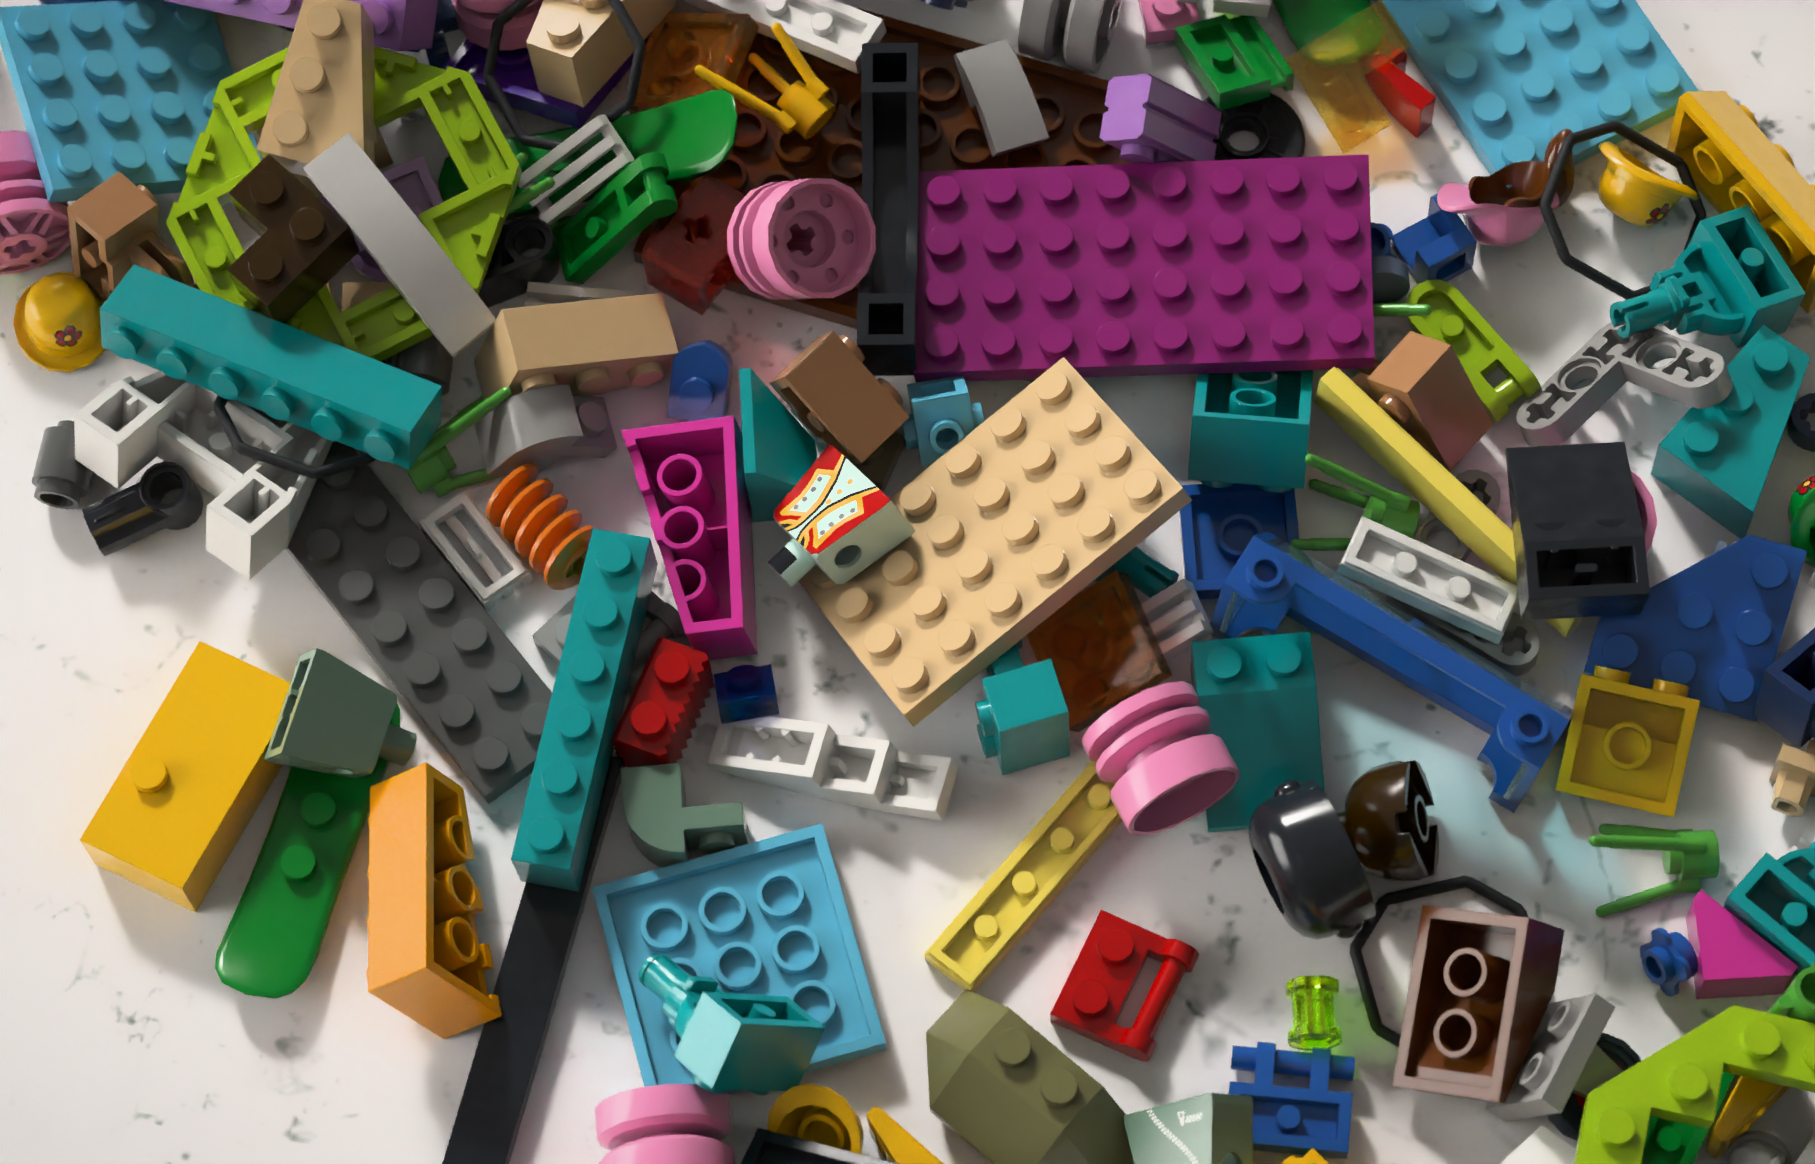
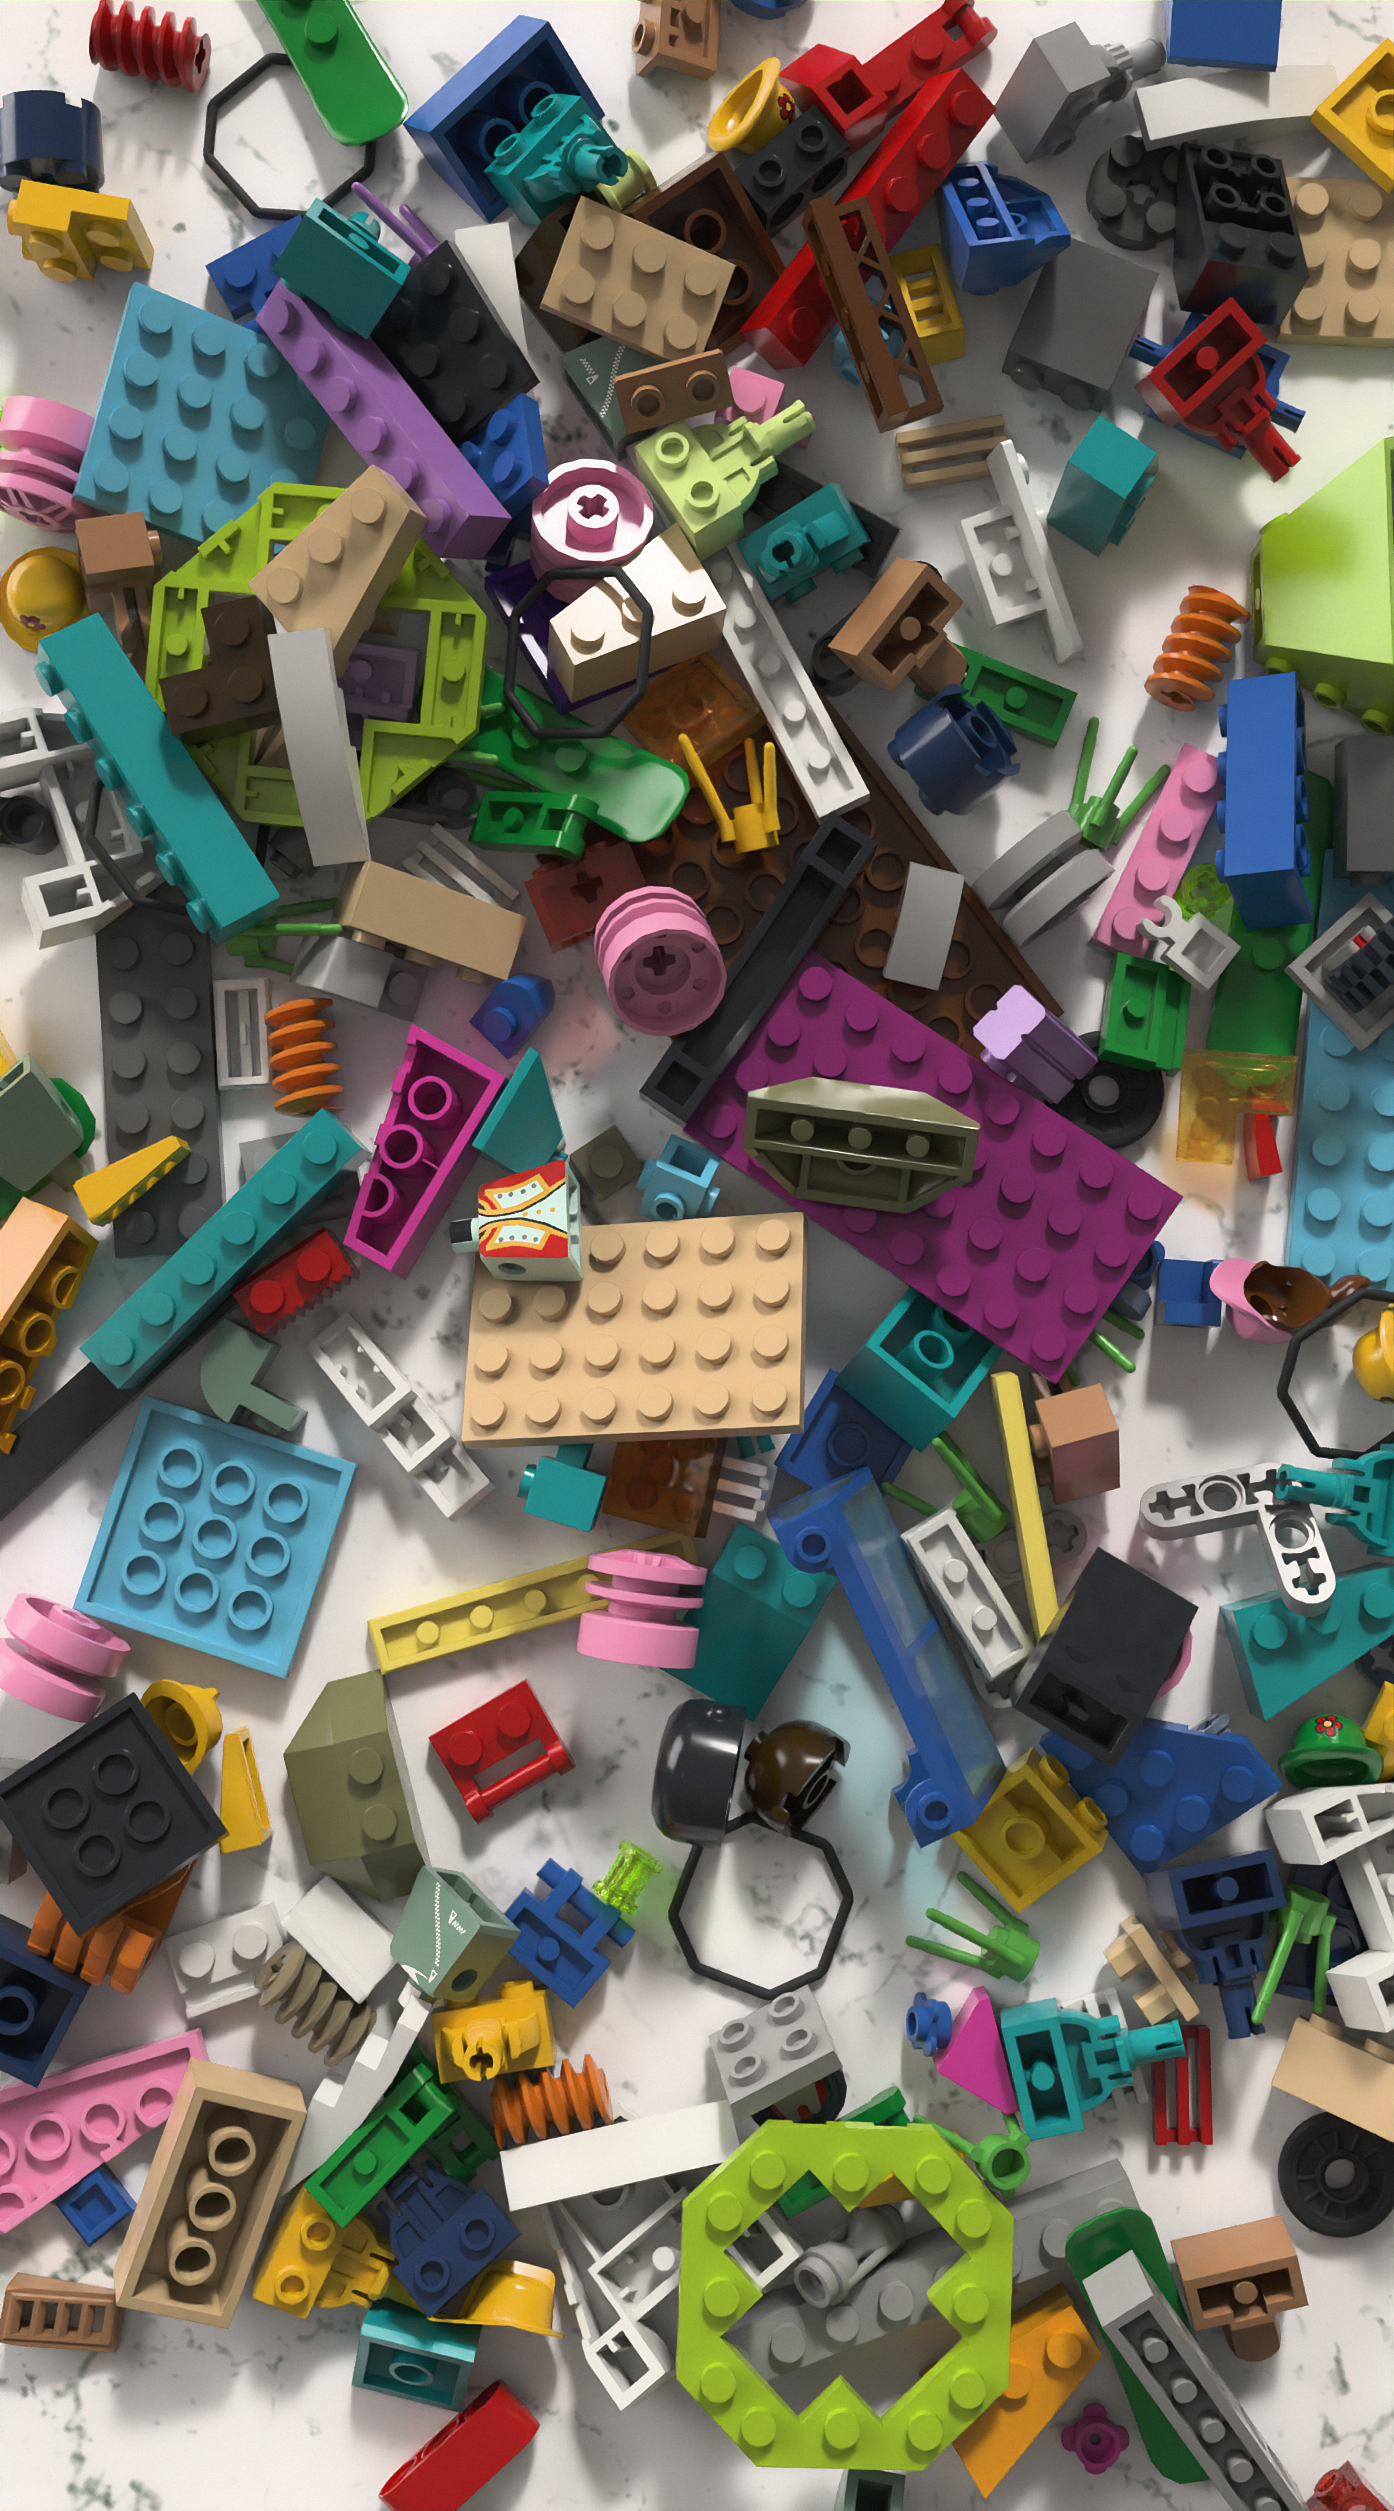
camera: 30 degrees right, 20 degrees up
(453, 713) = (119, 1185): none -> yellow slope
(612, 141) = (569, 758): white tile -> none
(733, 1037) = (151, 1609): teal brick -> none
(746, 693) = (371, 1311): clear blue plate -> none
(840, 397) = (600, 1123): medium nougat brick -> none
(1075, 269) = (859, 1143): none -> olive wedge
(1474, 1001) = (749, 1967): reddish brown slope -> none
(1475, 344) = (1151, 1404): lime plate -> none

